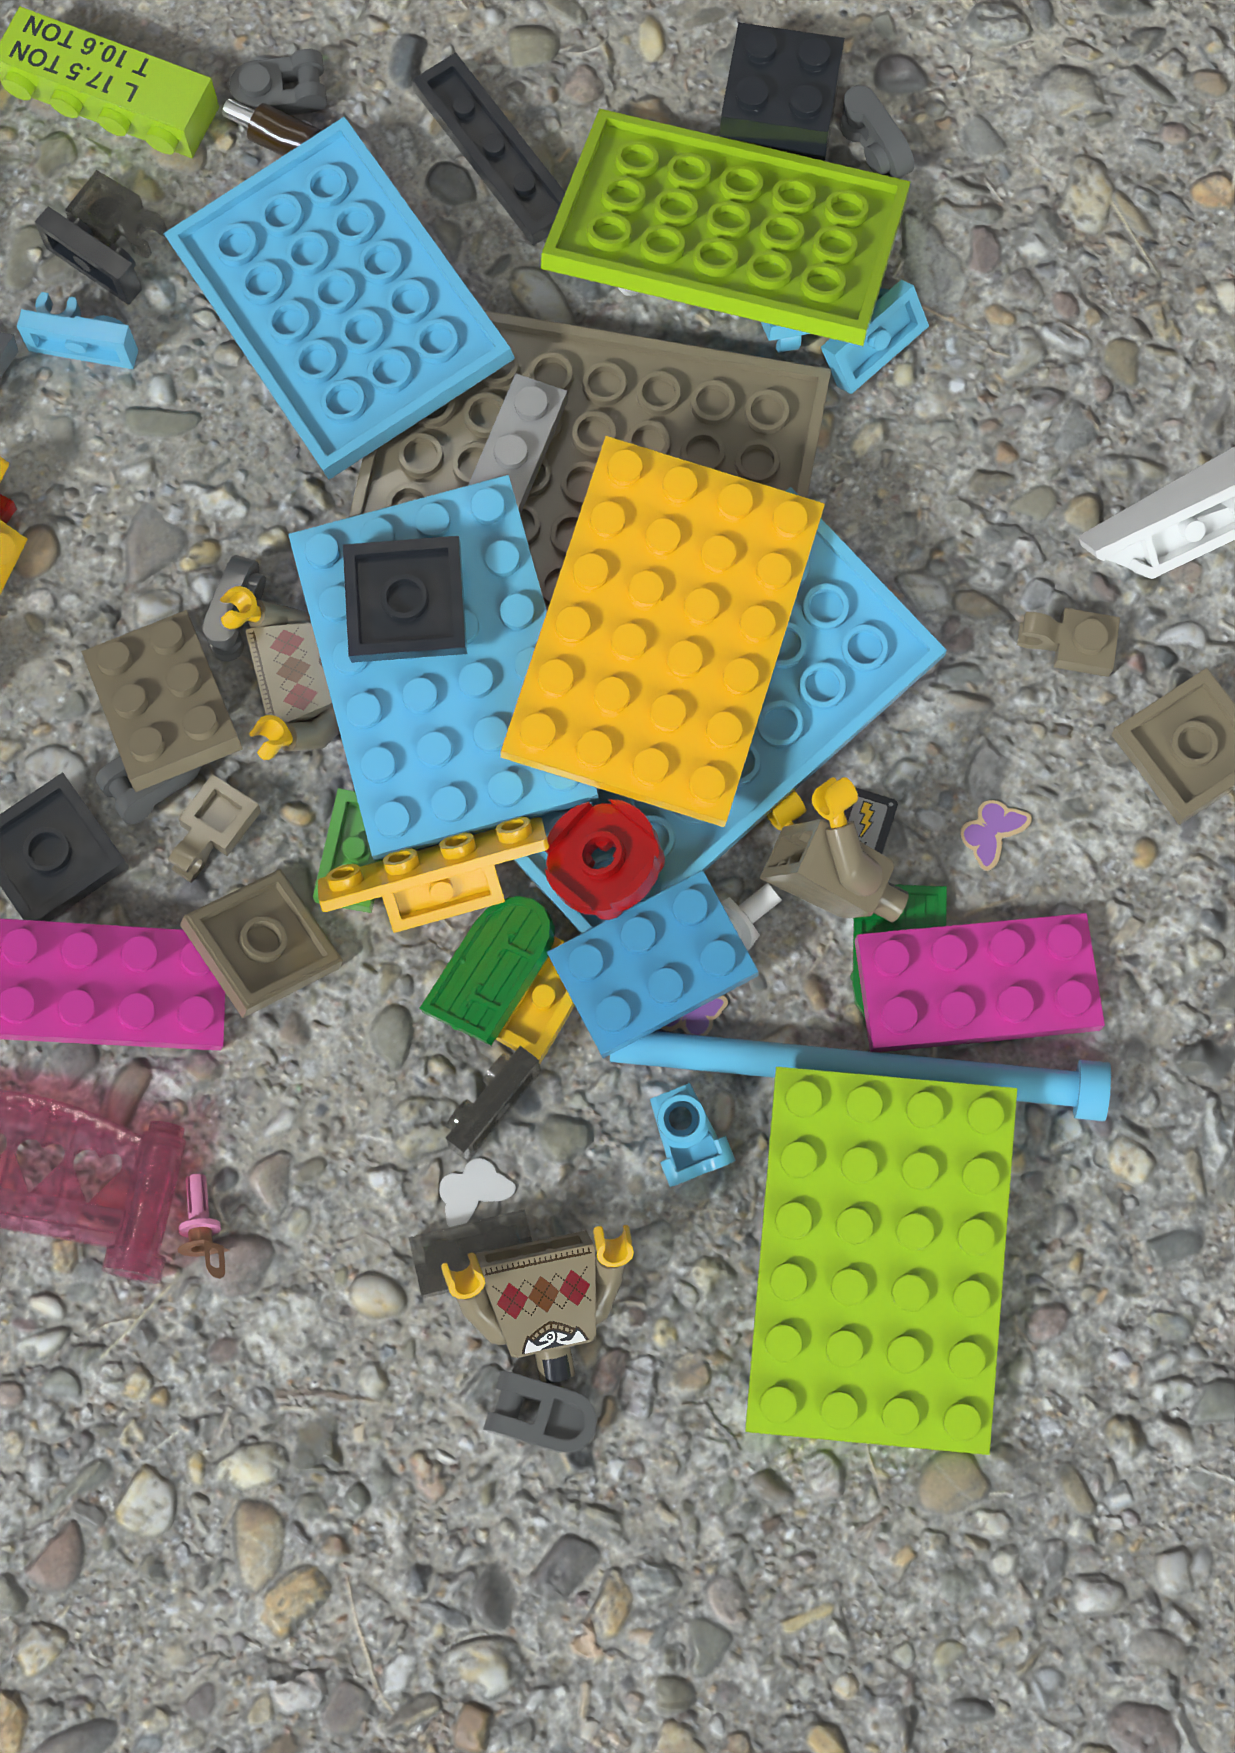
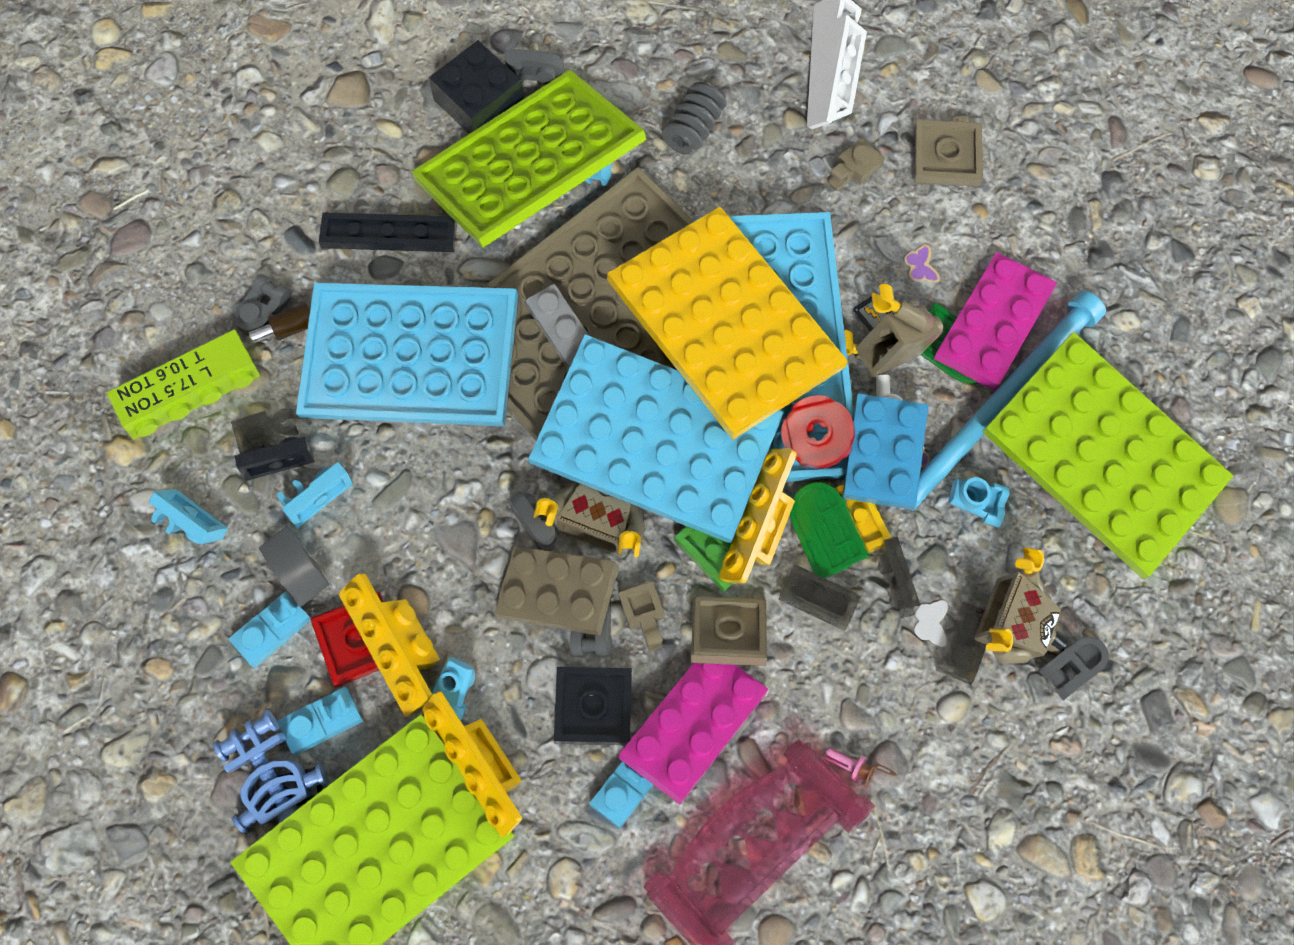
camera: 55 degrees left, 5 degrees down
(393, 1024) = (819, 597): none -> clear smoke plate
(404, 599) = (617, 423): black plate -> none
(894, 325) = (640, 155): medium azure plate -> none
(965, 383) = (694, 118): none -> dark grey piece

